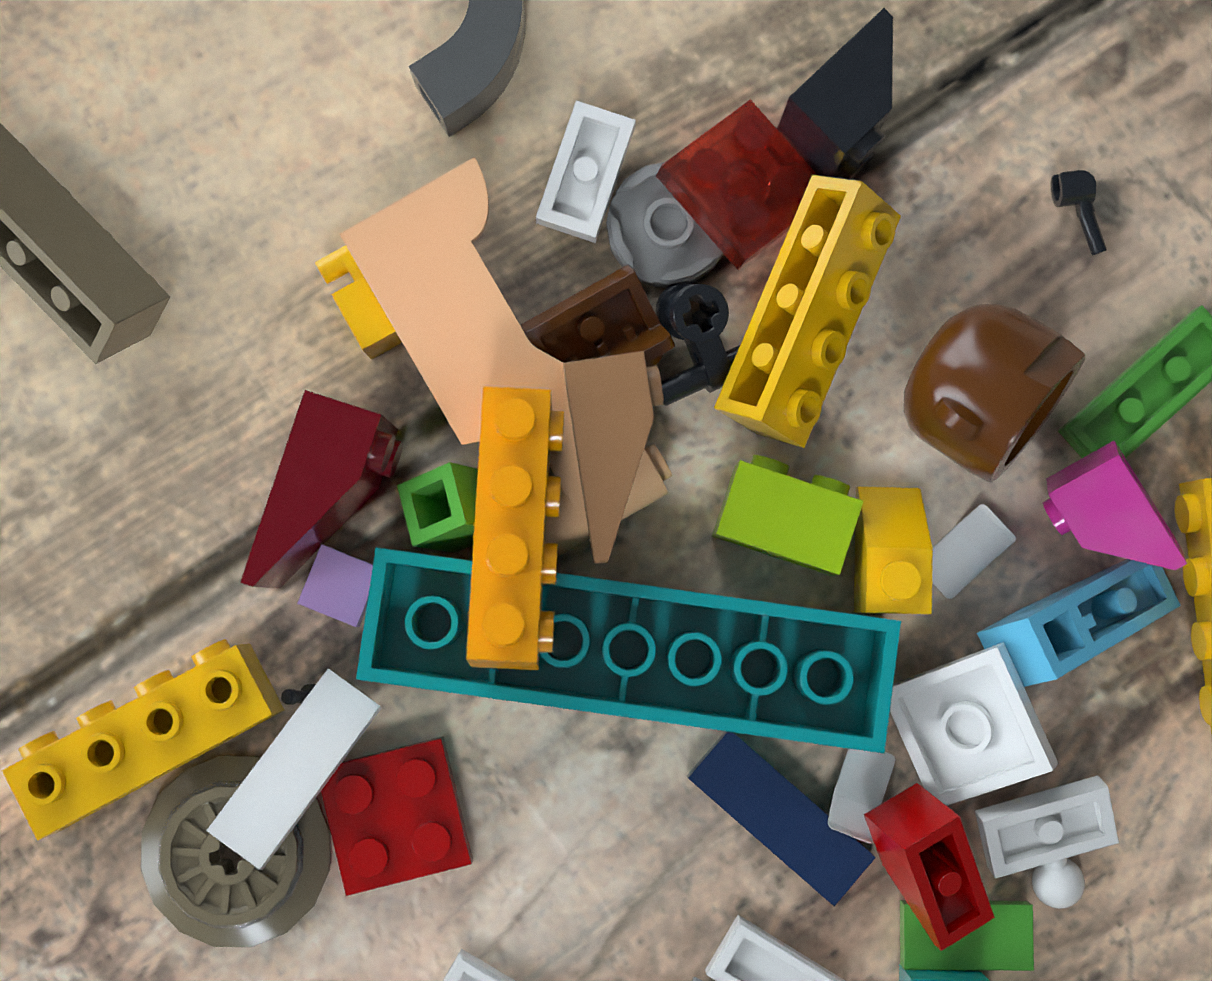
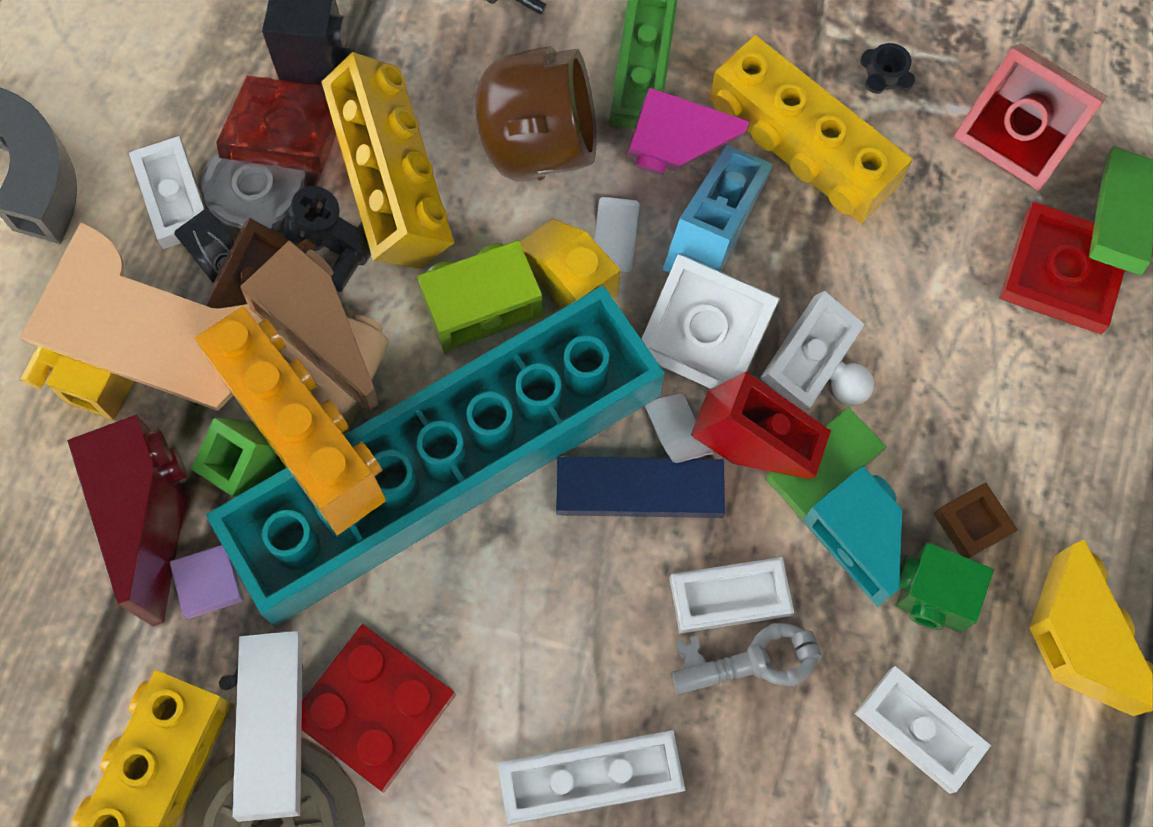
camera: 40 degrees left, 15 degrees down
(578, 256) = (206, 242): none -> black sticker

